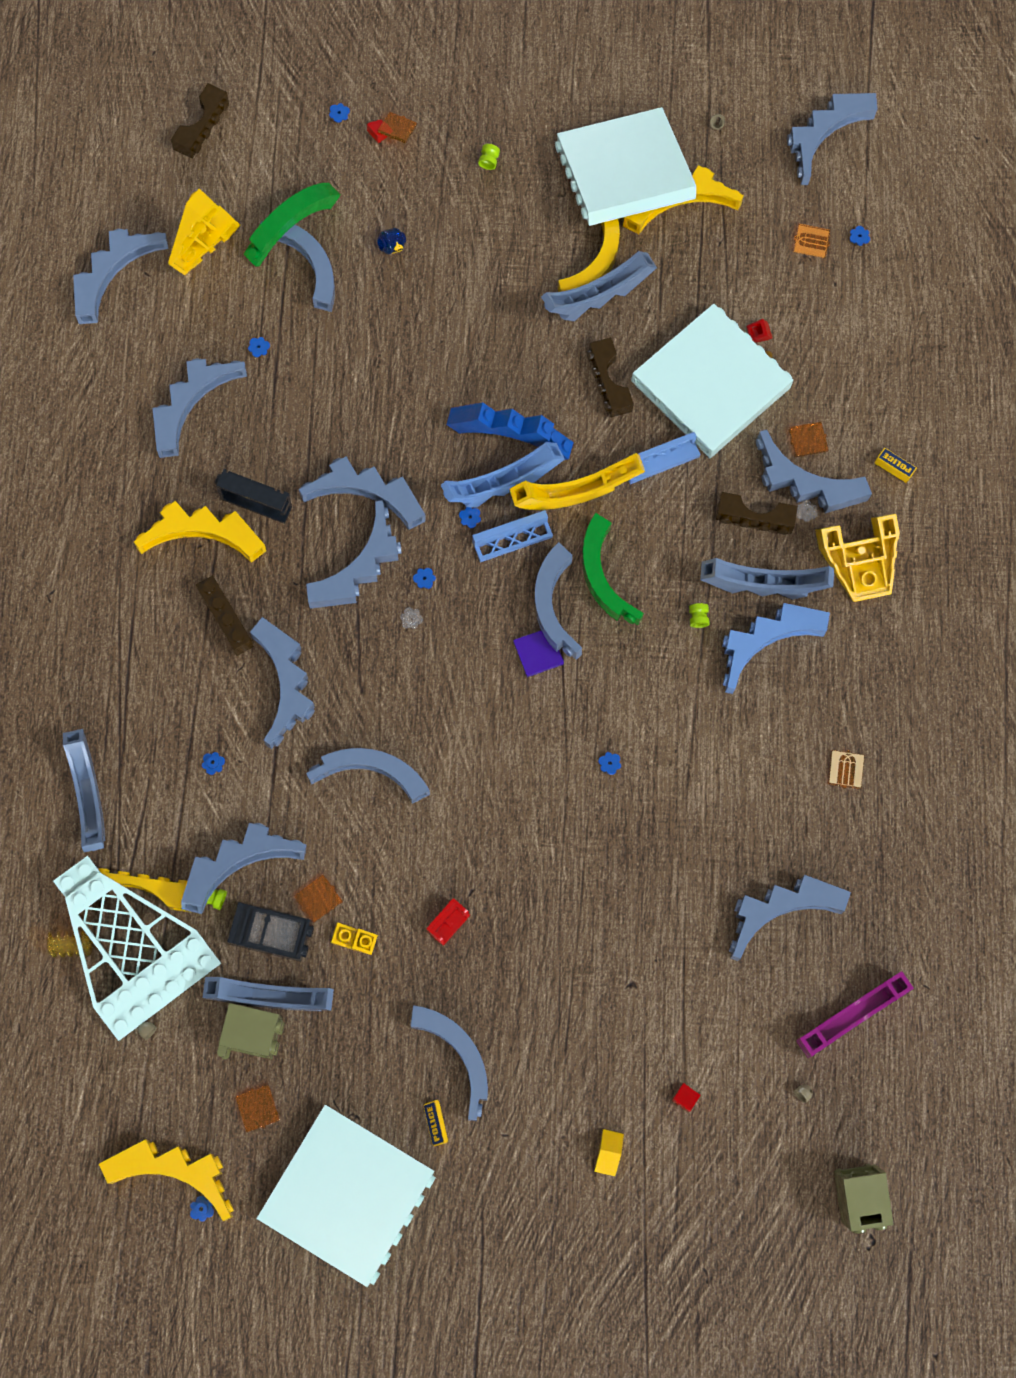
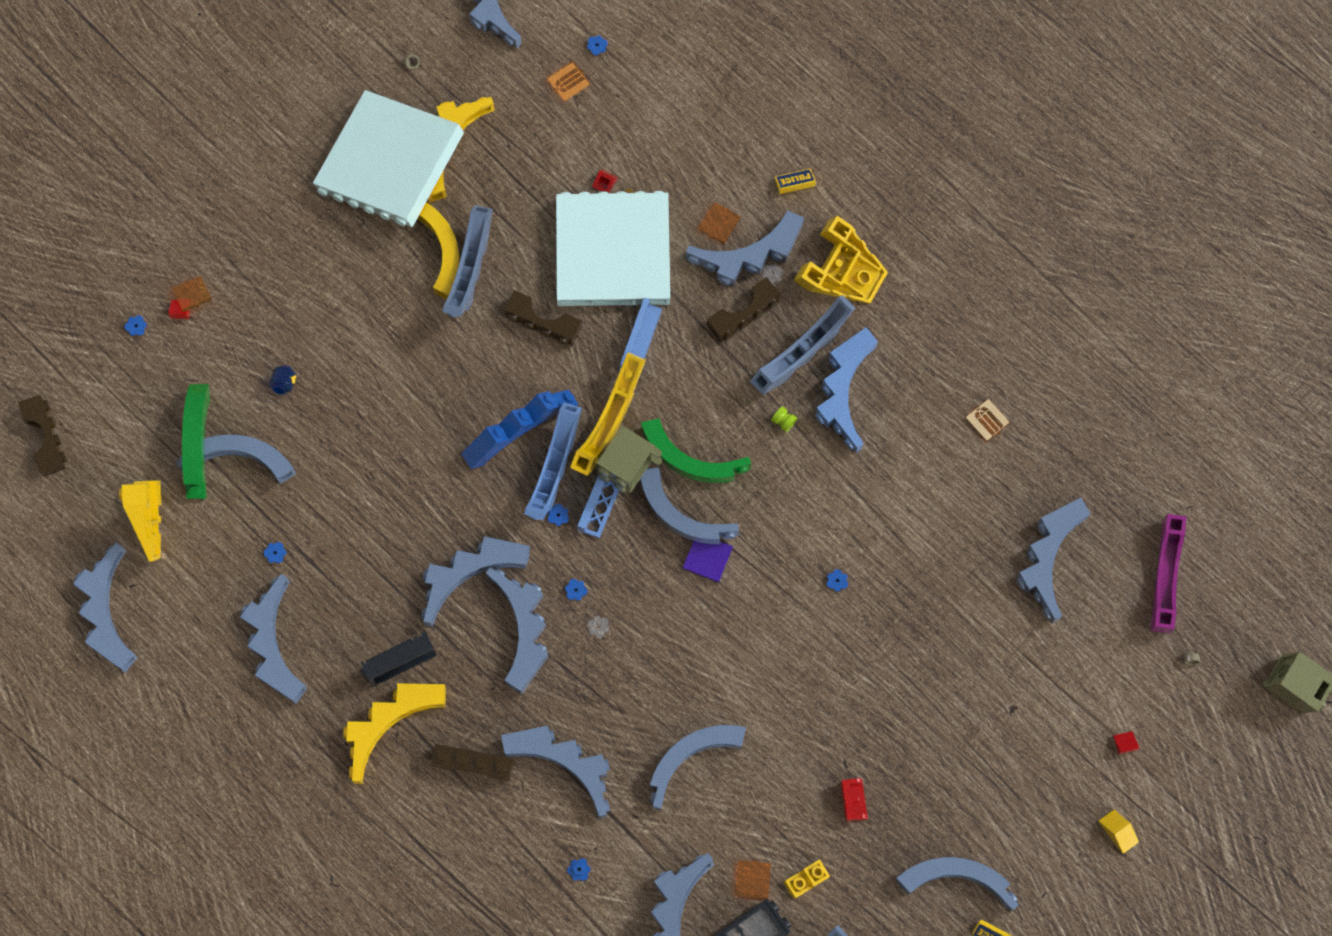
camera: 45 degrees left, 0 degrees up
(488, 157) = (281, 248): lime wheel -> none
(552, 523) = (627, 460): none -> olive container

